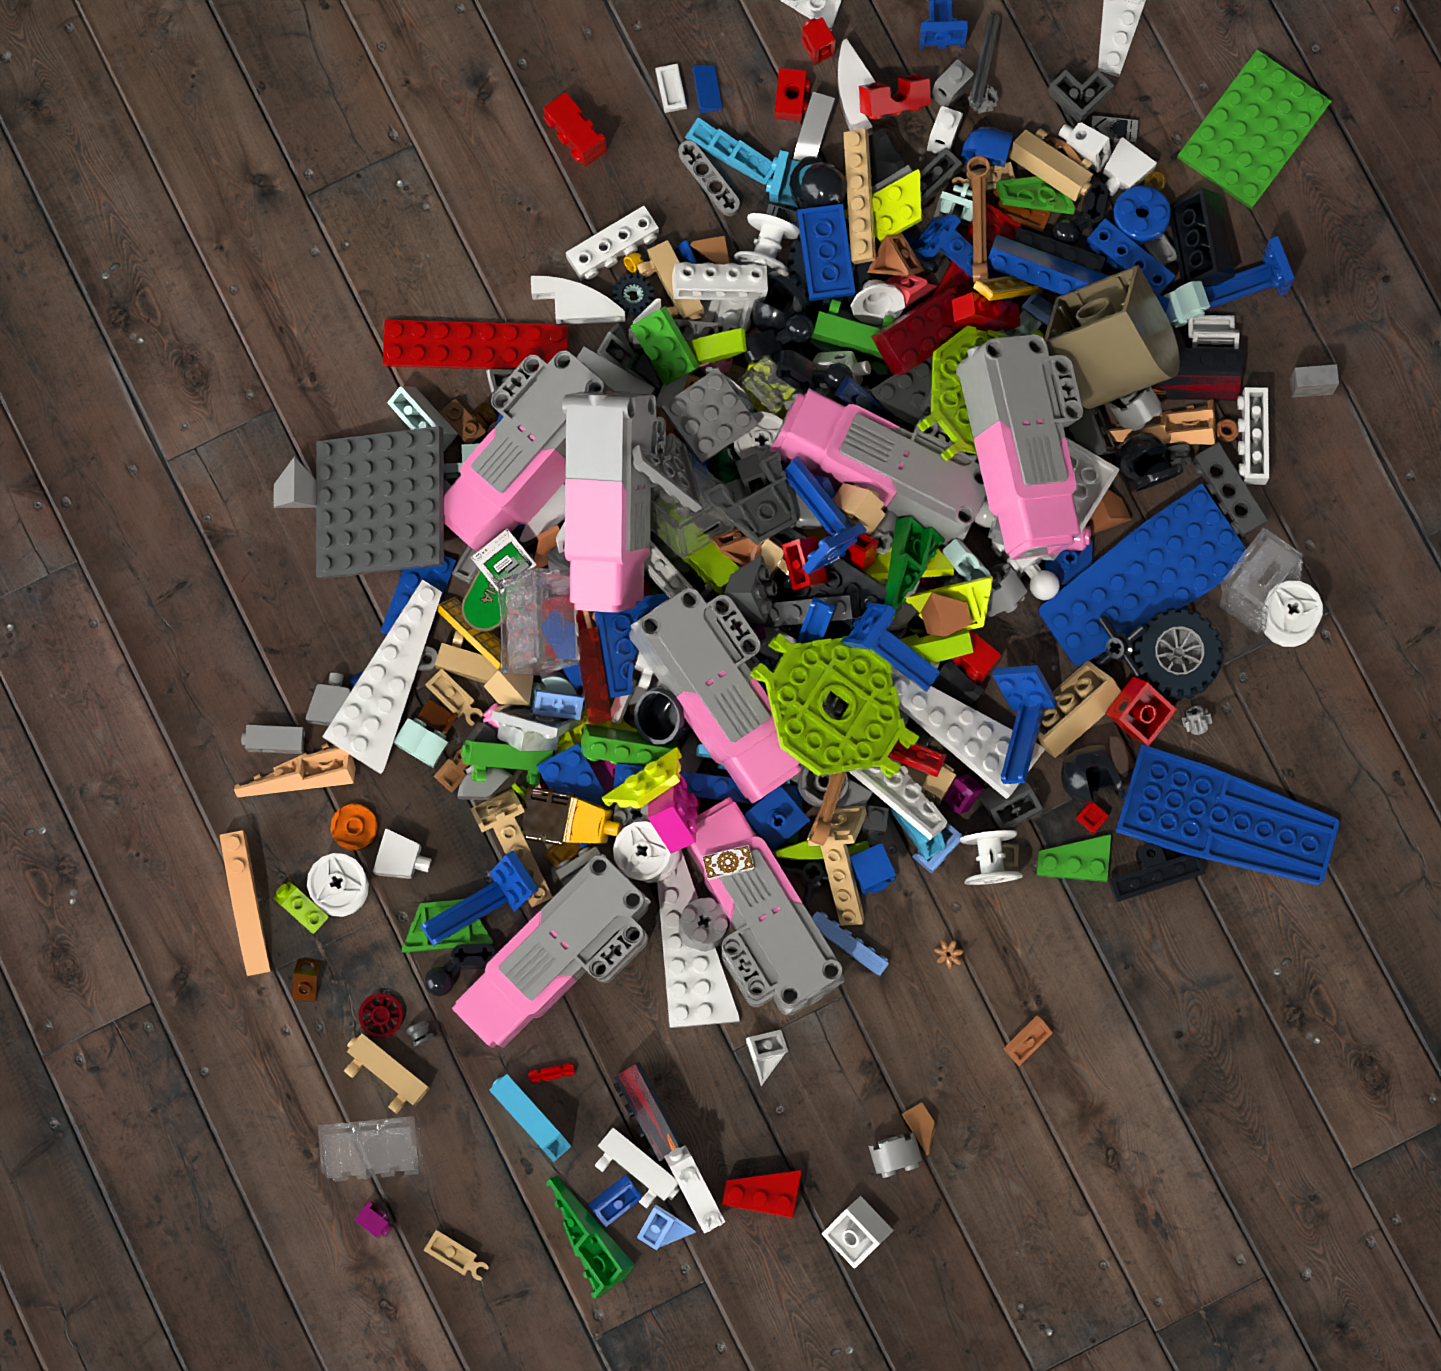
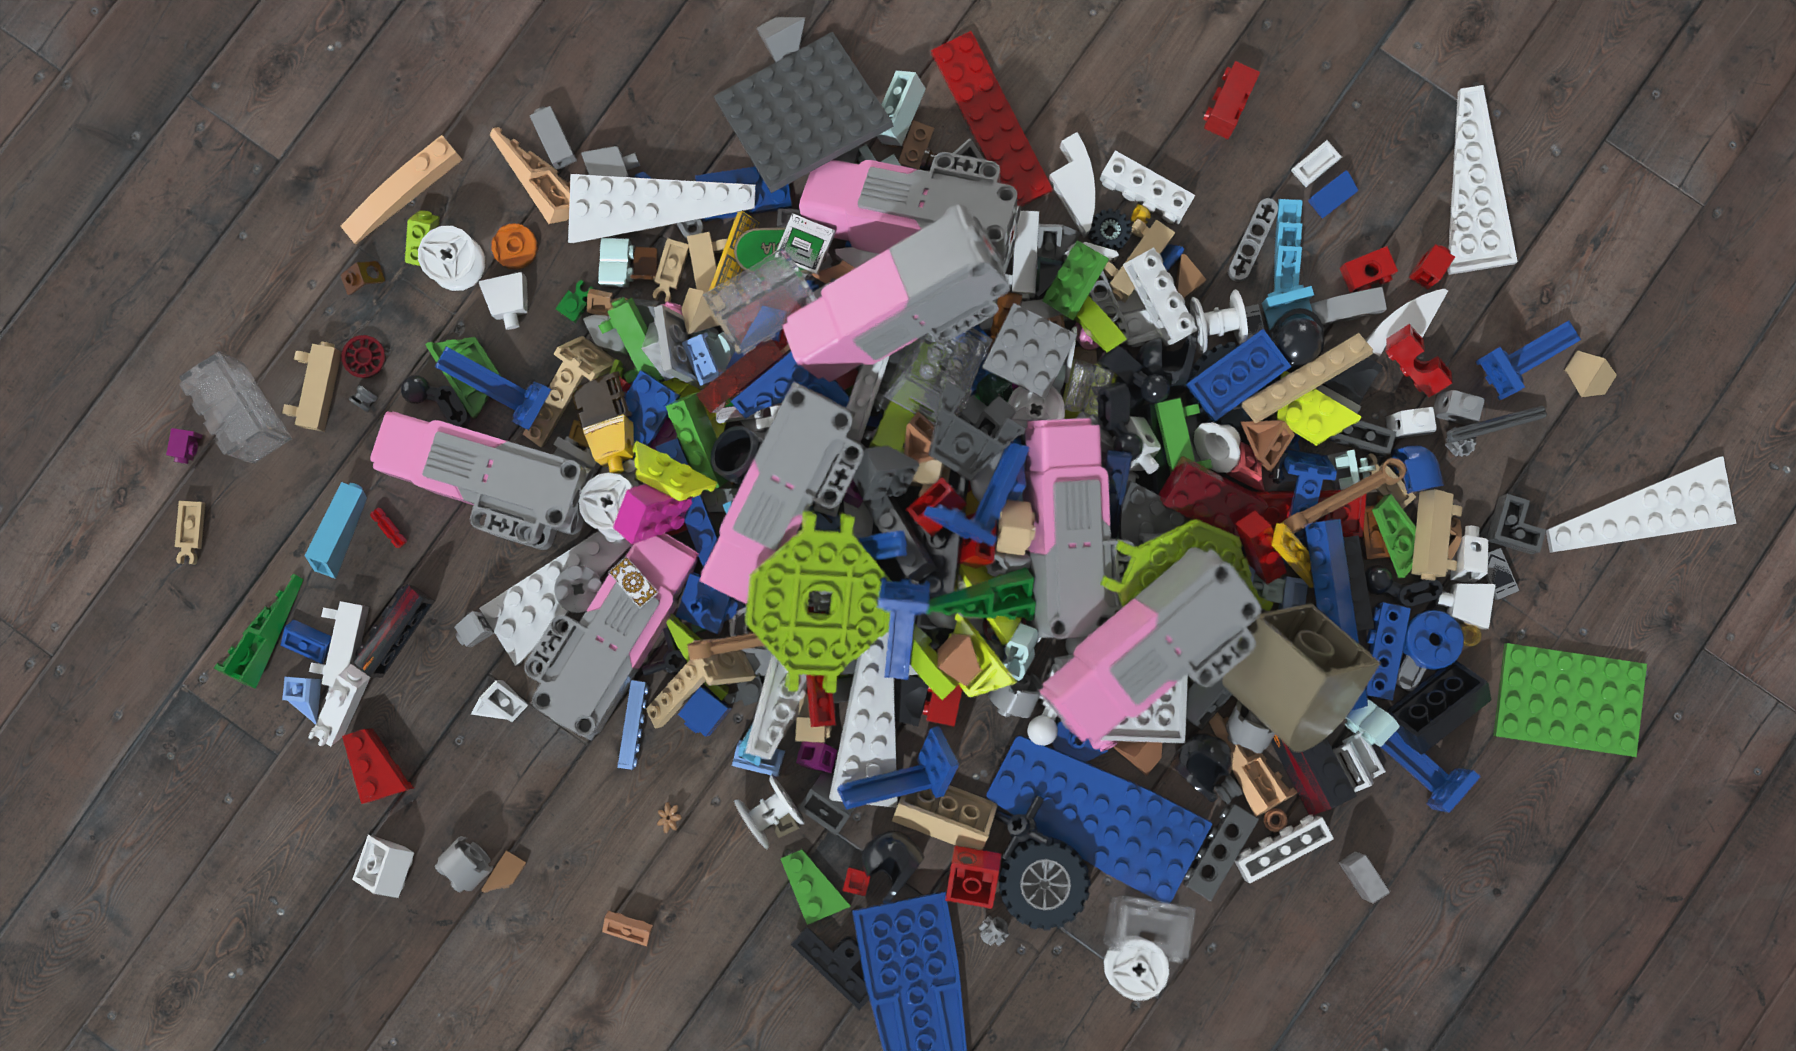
camera: 65 degrees right, 5 degrees up
(437, 800) = (572, 304): none -> green plate
(671, 471) = (949, 344): light grey plate -> none
(687, 1040) = (473, 629): none -> light grey slope

